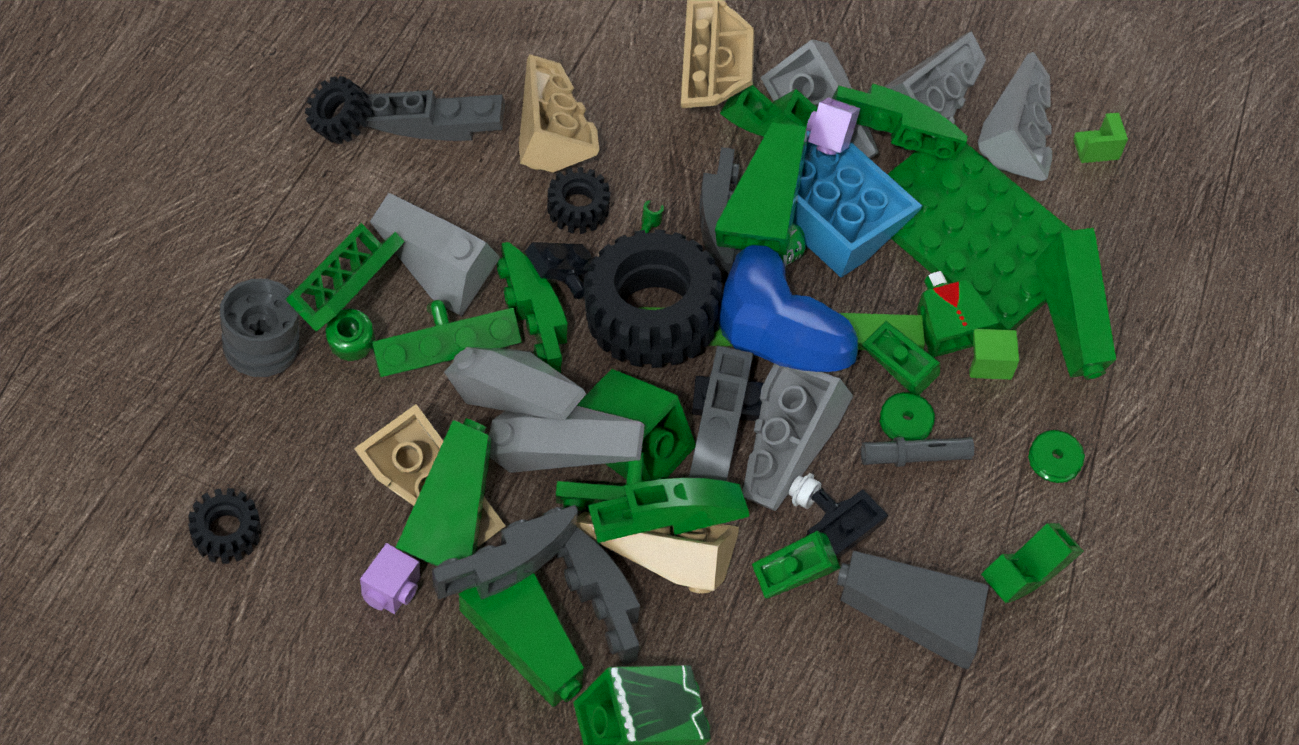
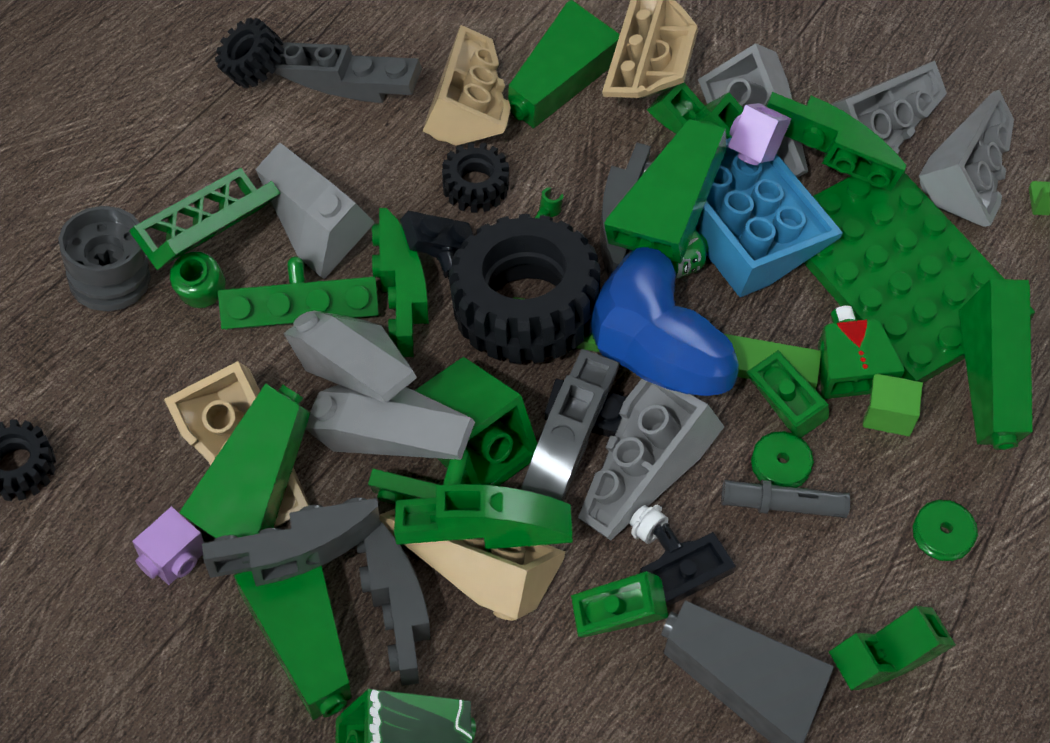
camera: 15 degrees right, 0 degrees up
(634, 79) = (562, 64): none -> green slope

